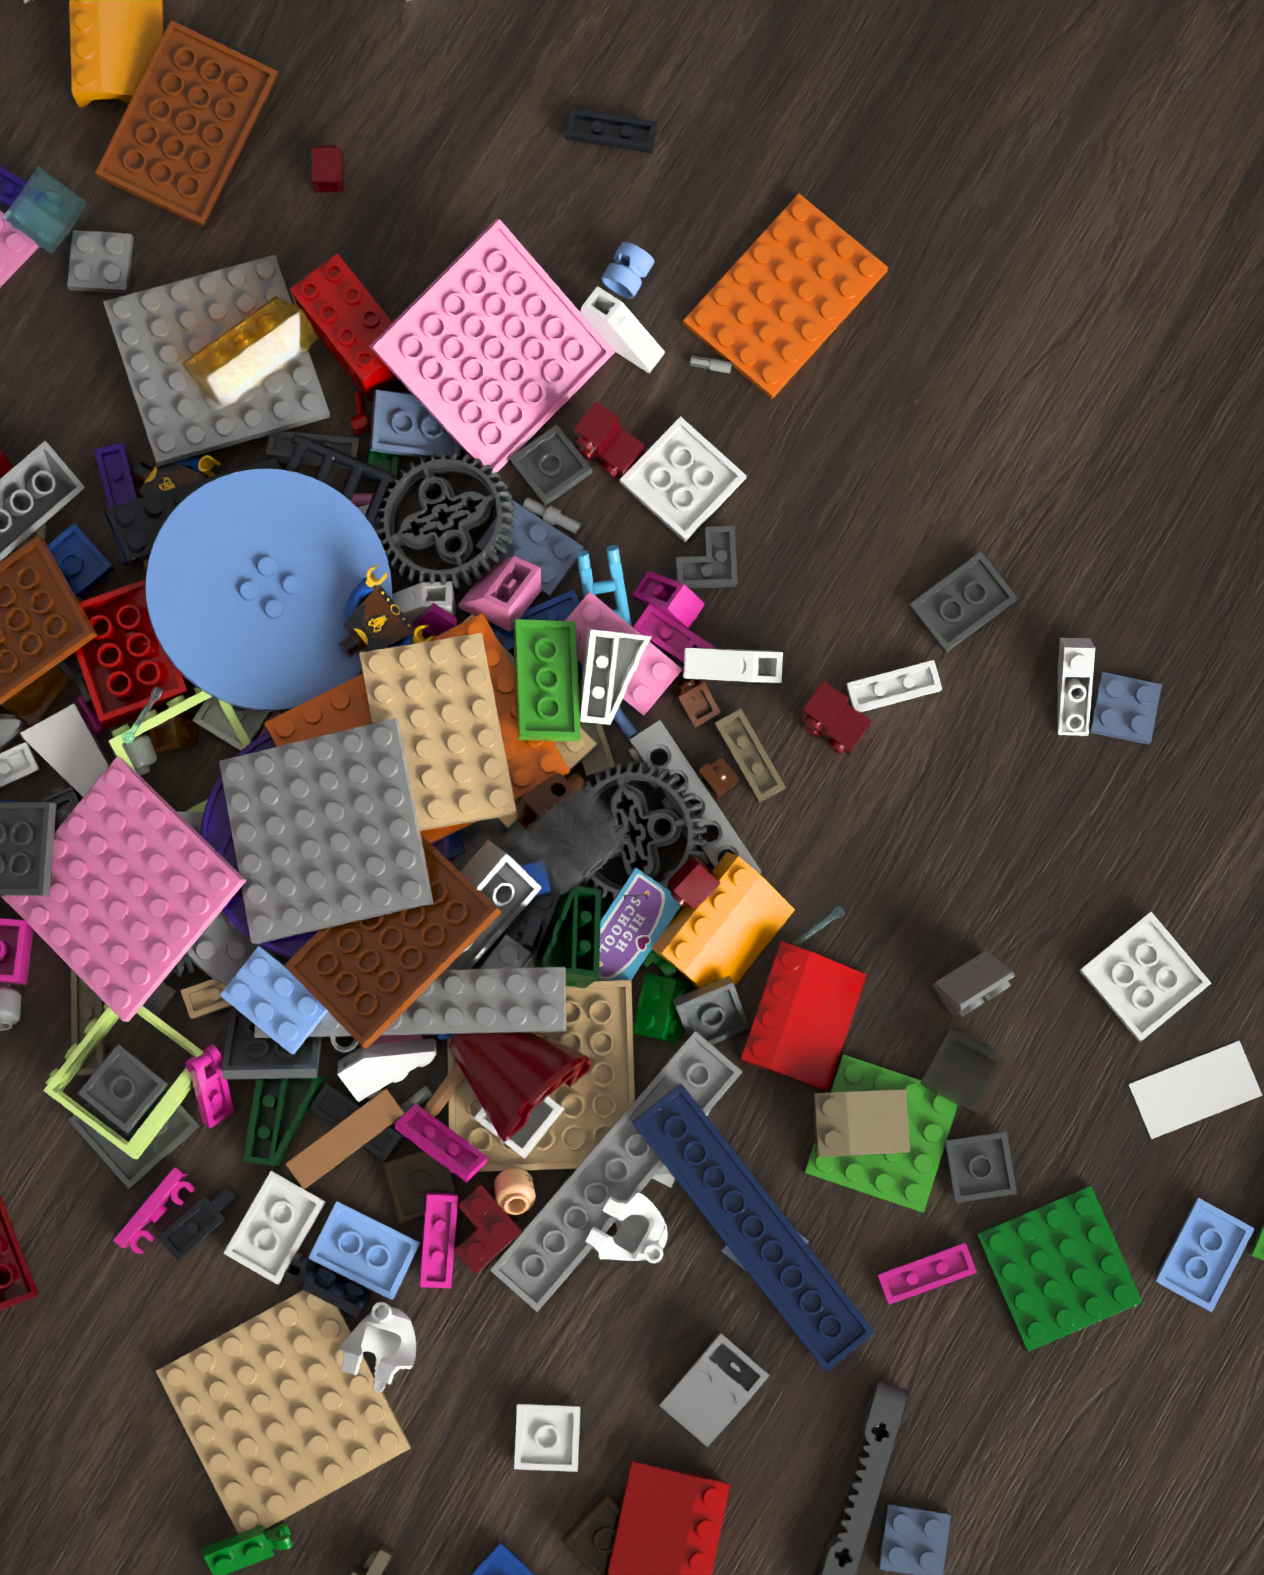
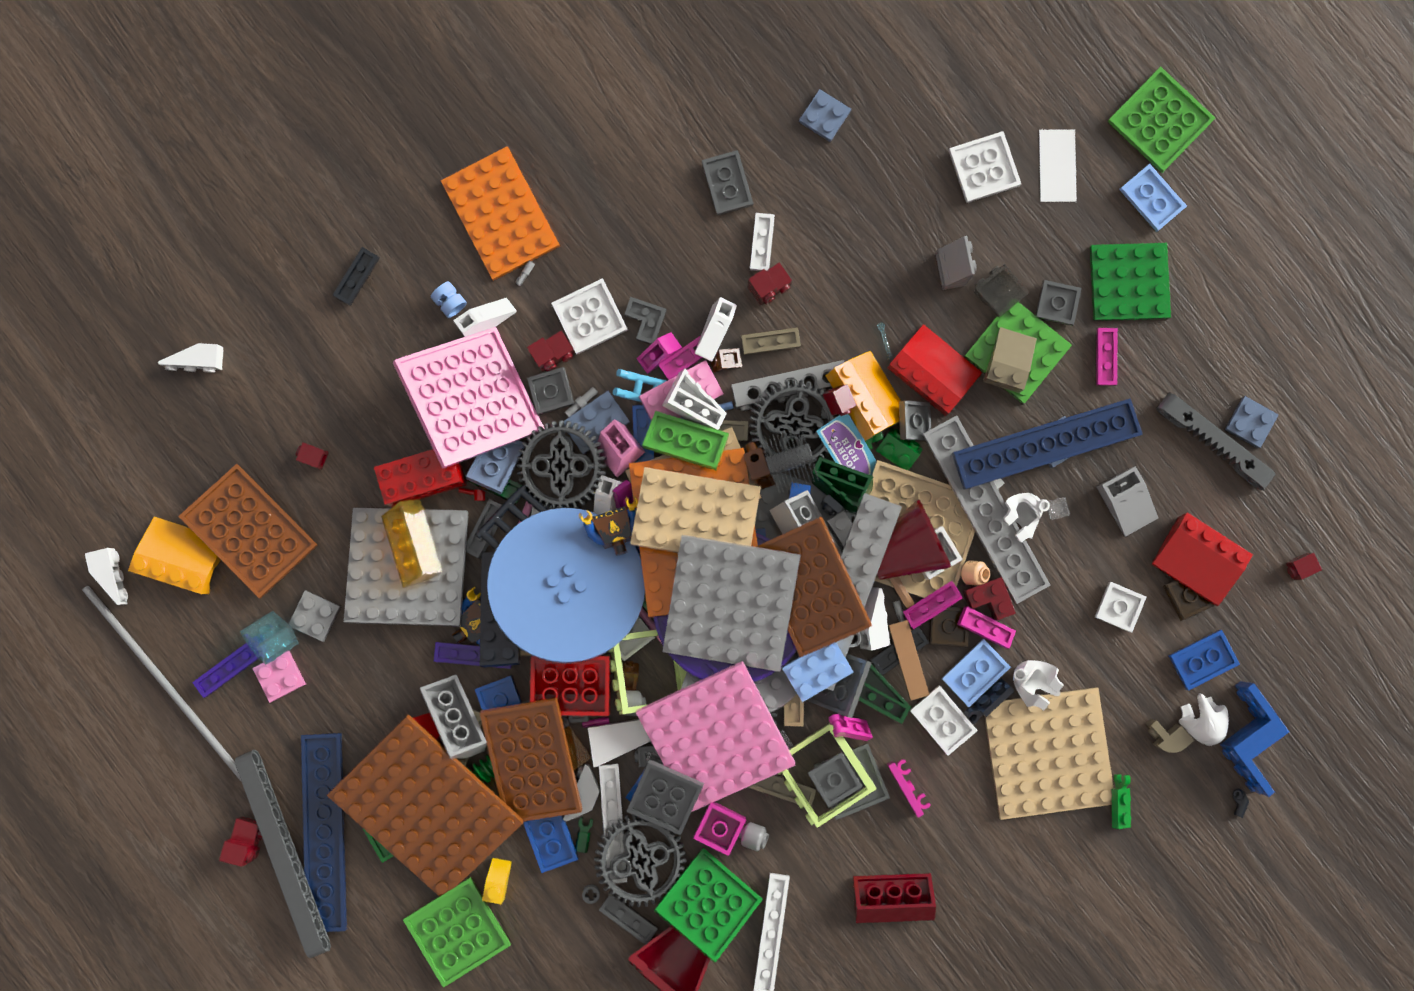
camera: 70 degrees left, 5 degrees up
(129, 737) = (626, 701): clear light blue hinge -> none
(197, 1224) = (924, 765): black plate -> none
(662, 1283) = (1058, 508): none -> clear plate
(718, 777) = (777, 364): reddish brown bracket -> none
(1075, 685) = (800, 138): white slope -> none

